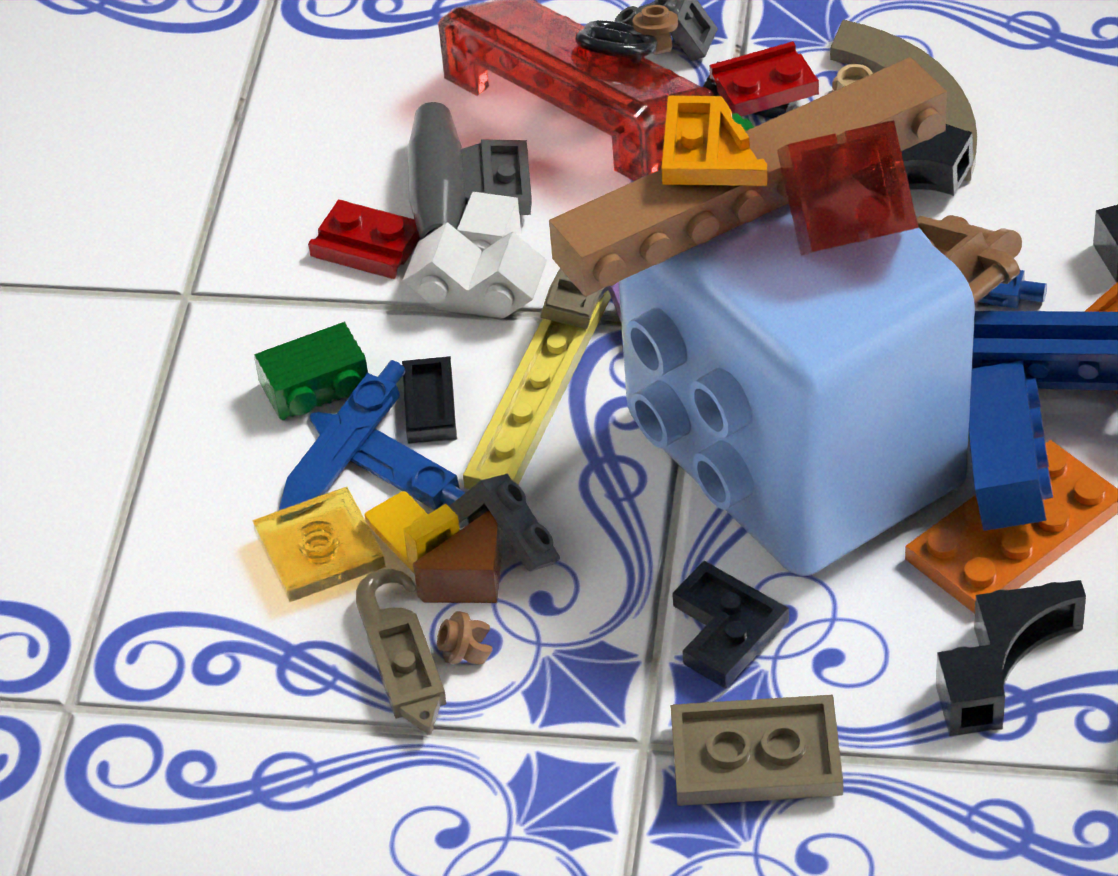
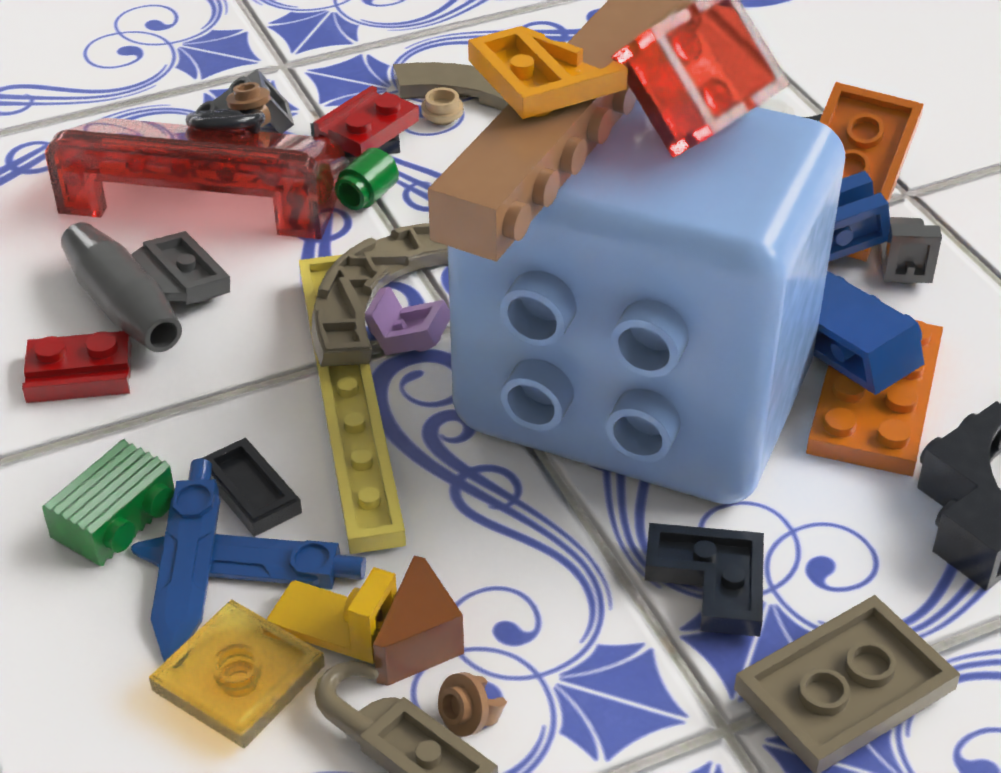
camera: 35 degrees left, 5 degrees down
(466, 280) = (211, 365): white brick -> none
(489, 218) = (205, 315): white brick -> none
(513, 515) = (428, 545): dark grey bracket -> none

